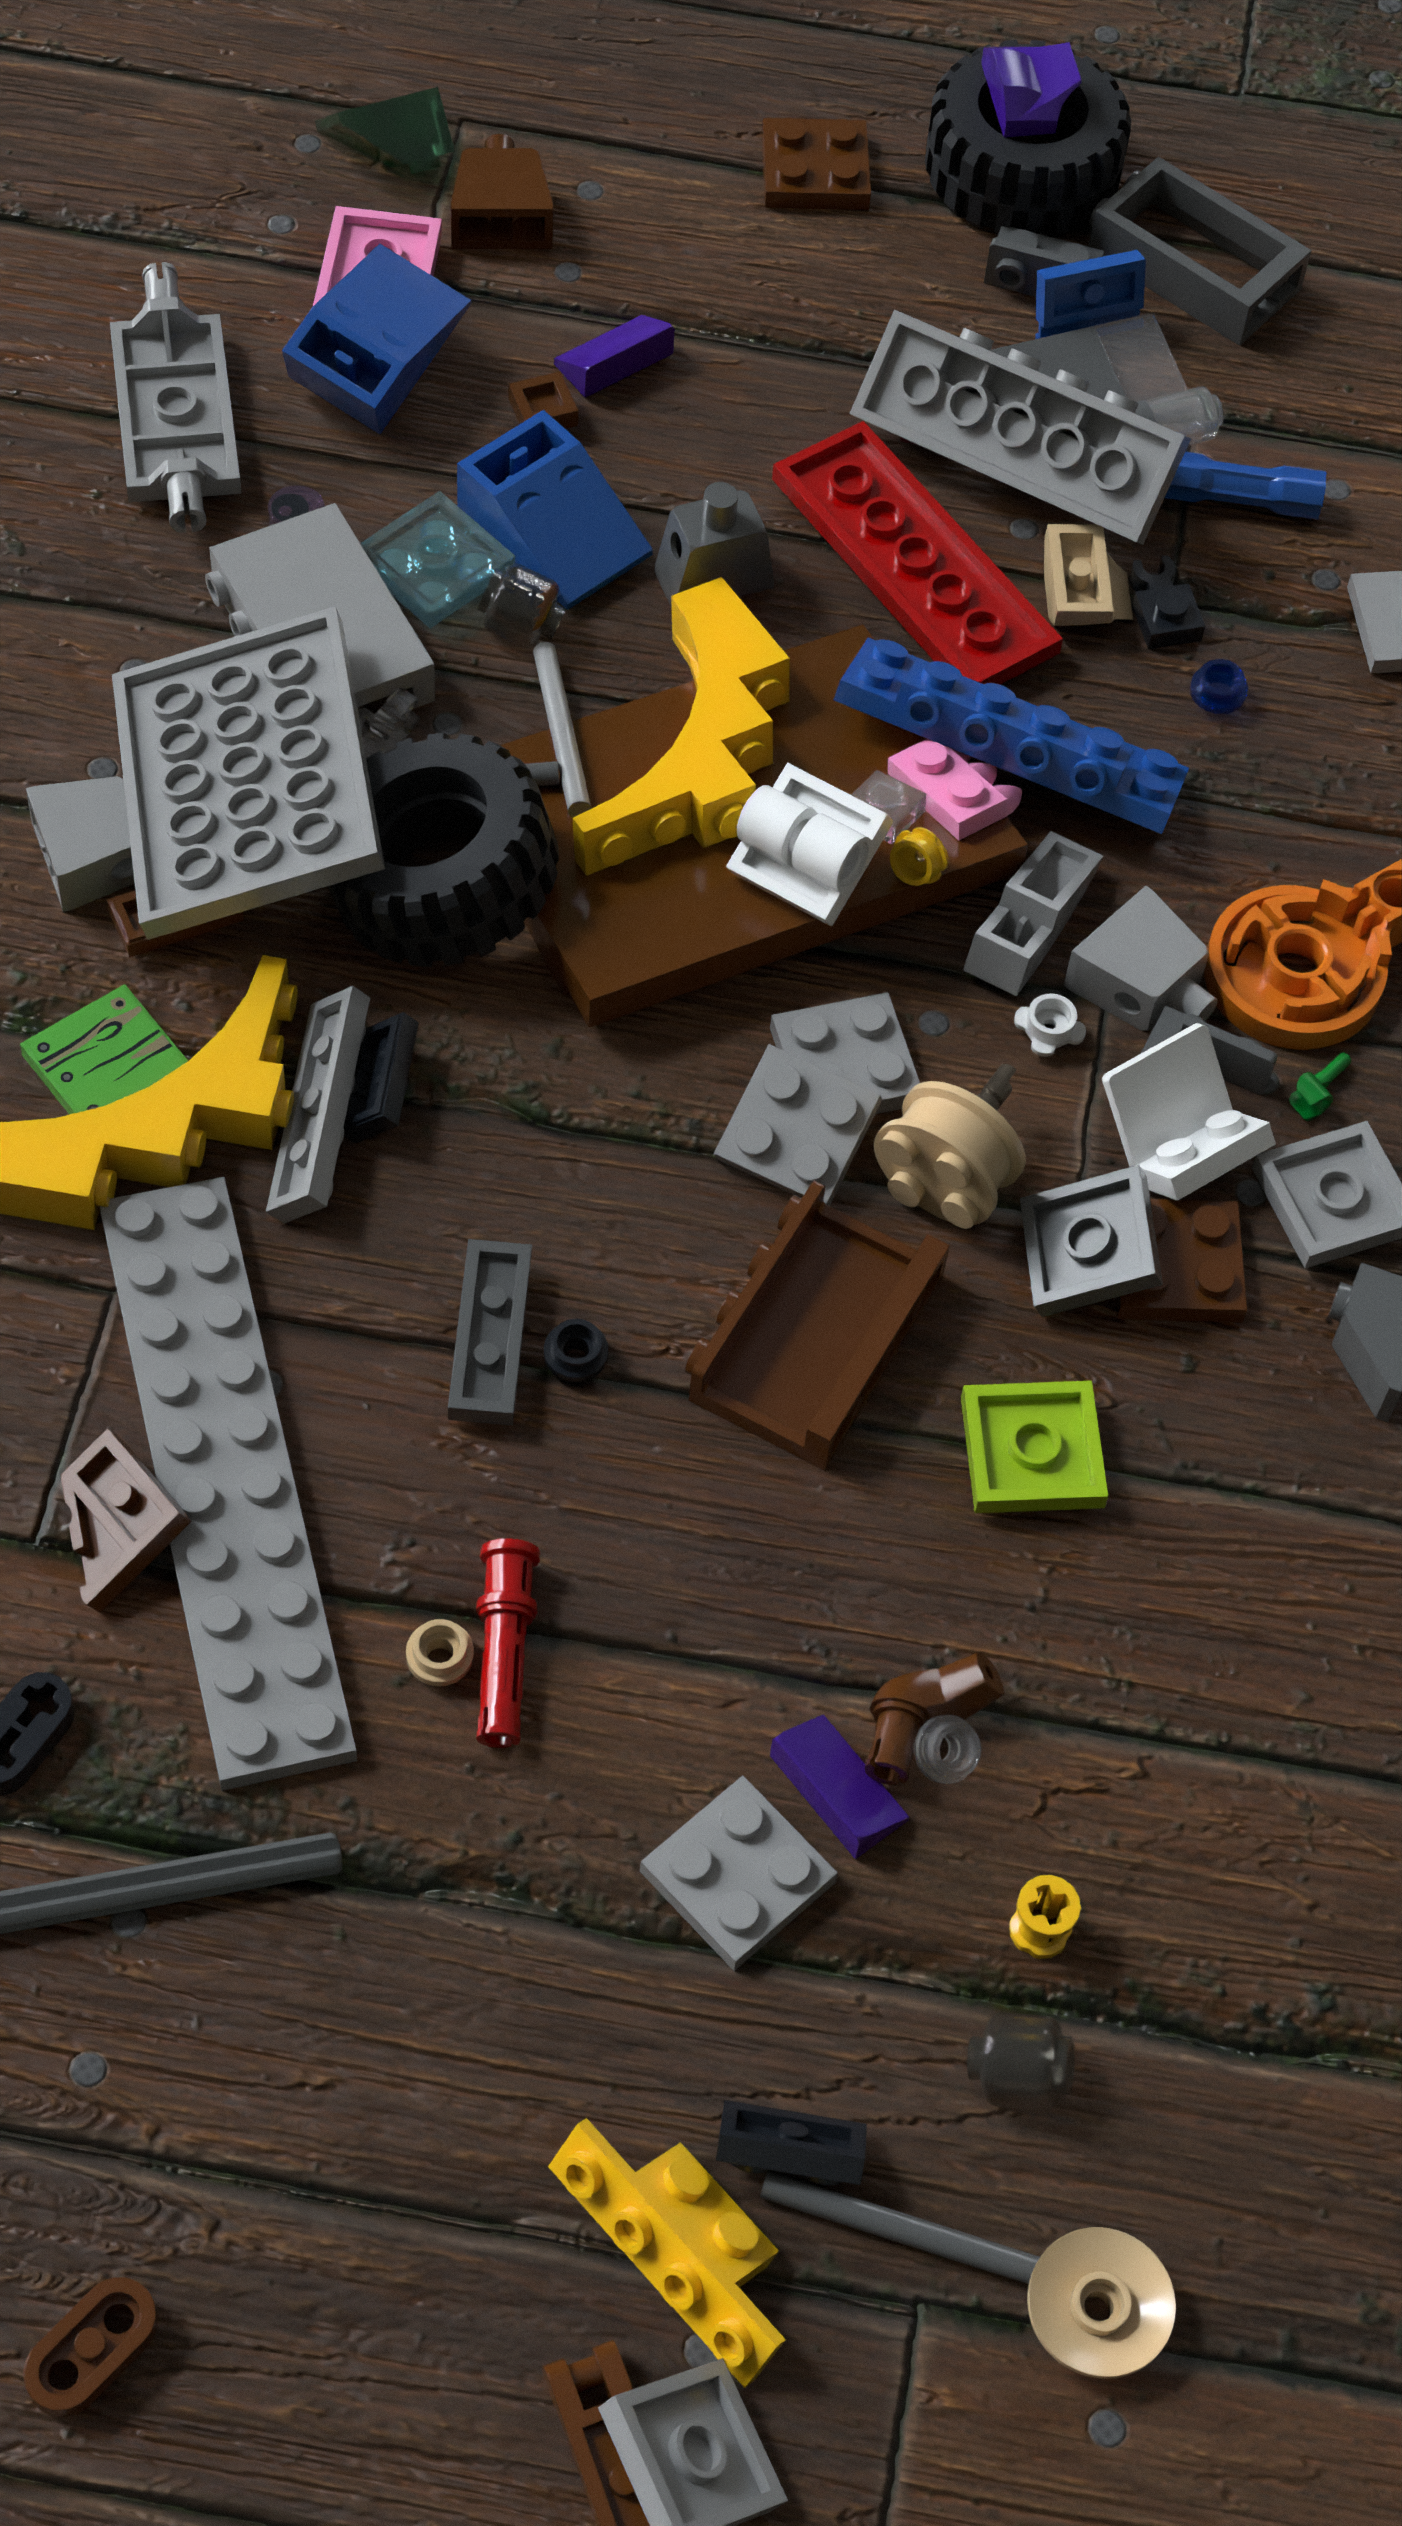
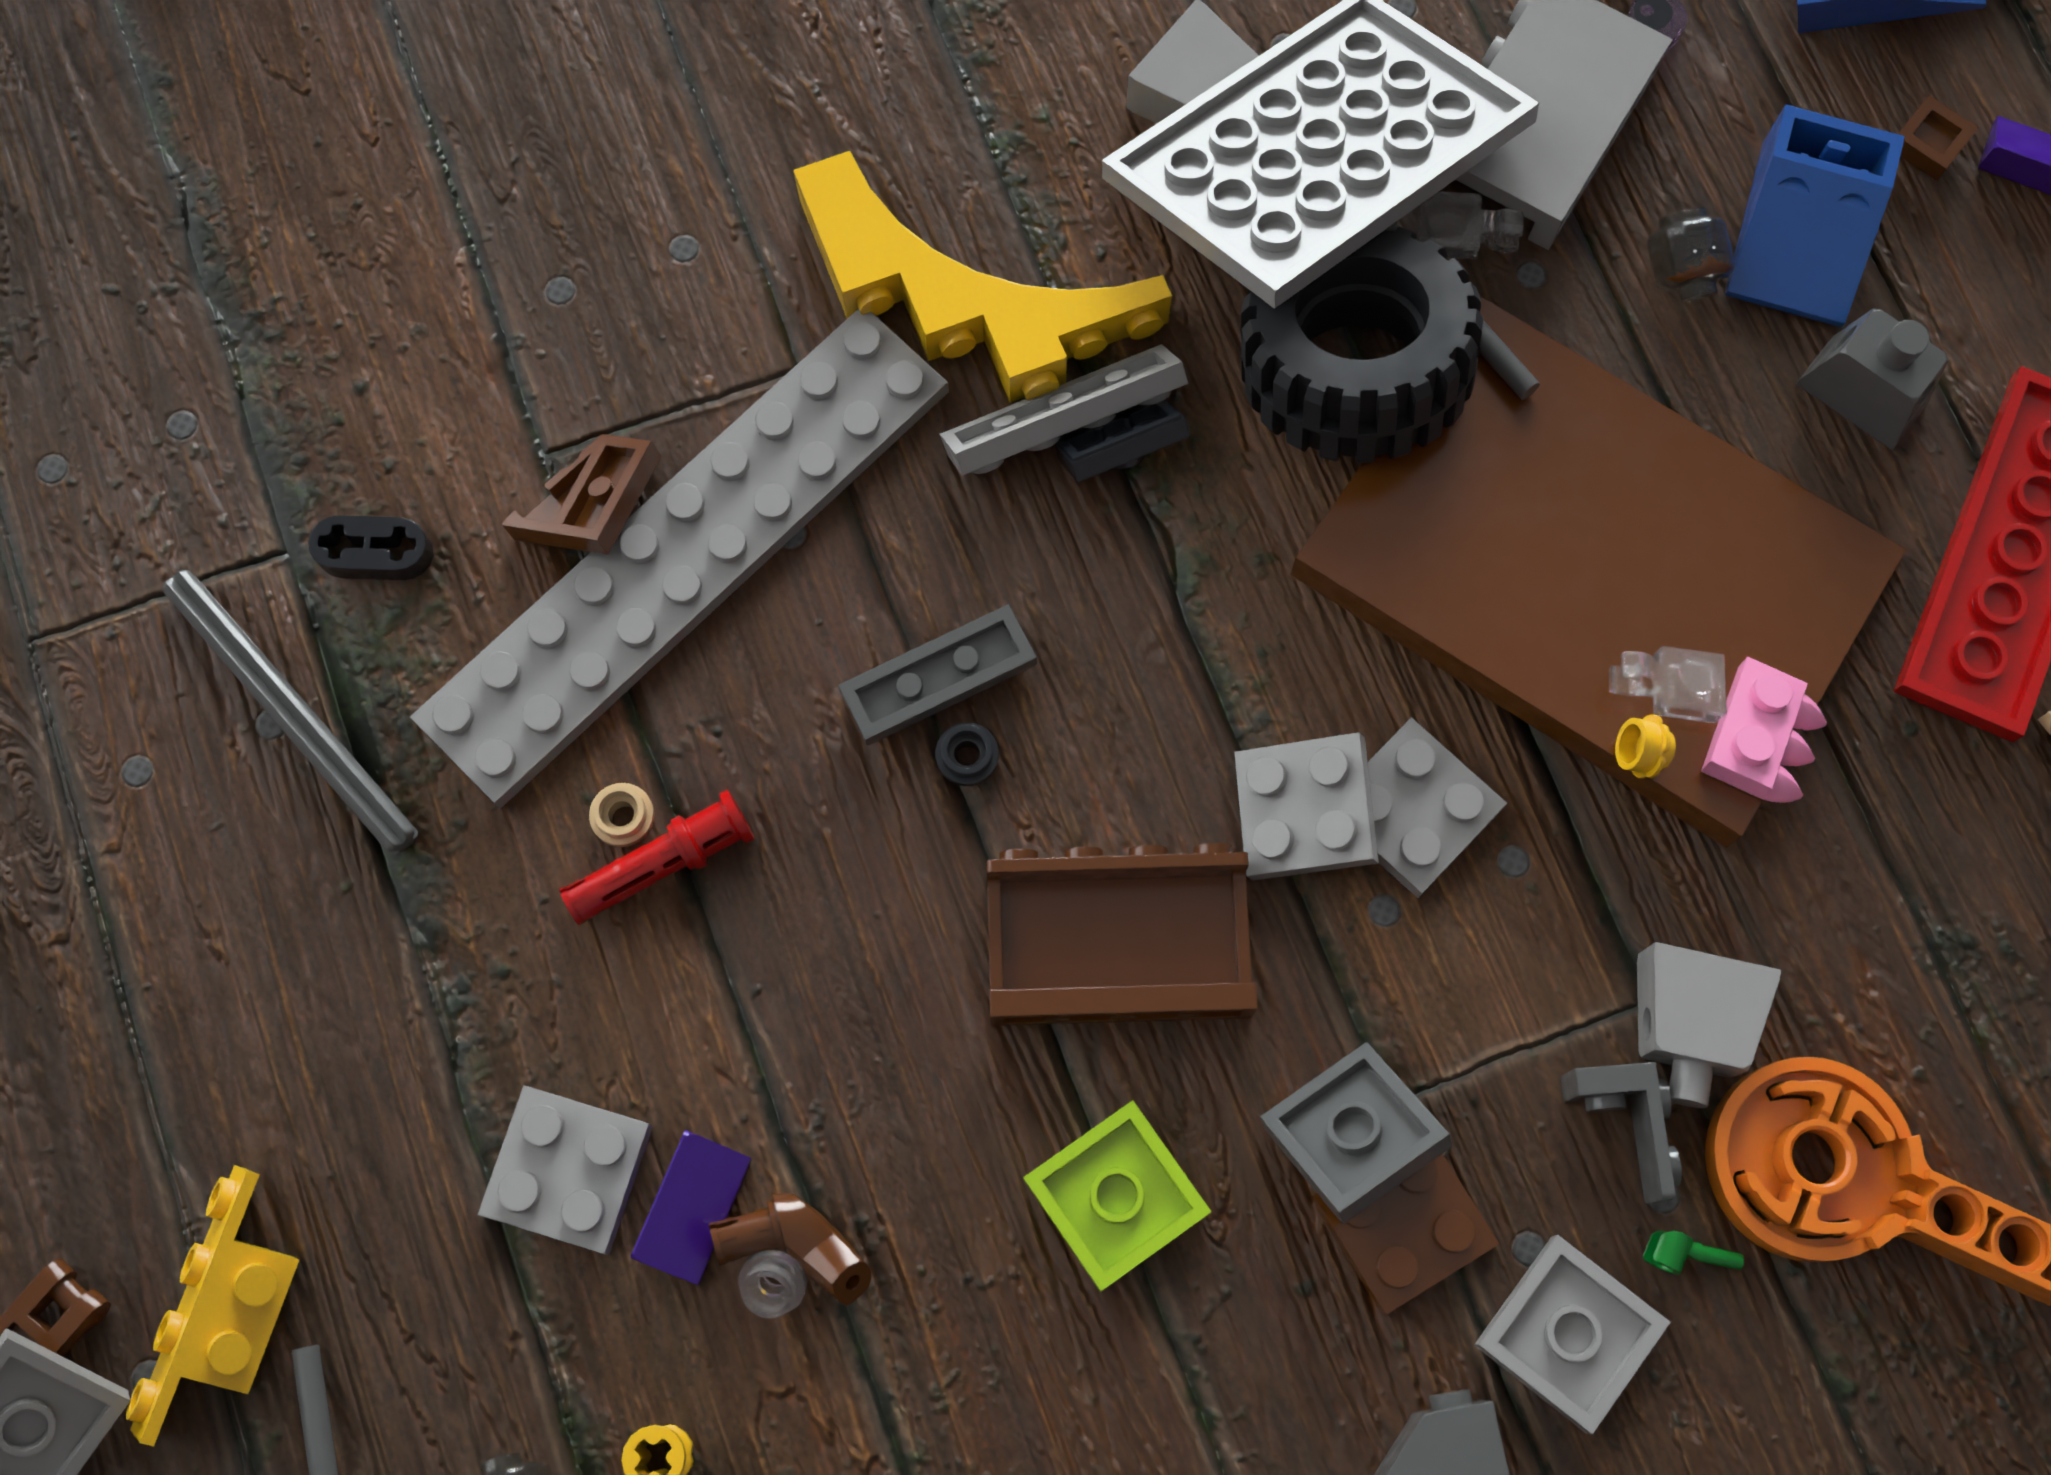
camera: 65 degrees right, 15 degrees up
(102, 1052) = (1004, 222): bright green tile -> none
(436, 558) = (1689, 155): clear light blue plate -> none
(561, 729) = (1583, 367): light grey bar -> none
(729, 734) = (1659, 502): yellow arch -> none
(792, 2142) = (340, 1352): black plate -> none
(807, 842) = (1580, 639): white plate -> none
(952, 1149) = (1357, 955): tan wheel -> none
(1012, 733) = (1867, 754): blue plate -> none
(1031, 913) = (1690, 881): light grey slope -> none
(1051, 1010) = (1596, 959): white plate -> none
(1180, 1116) = (1544, 1145): white bracket -> none

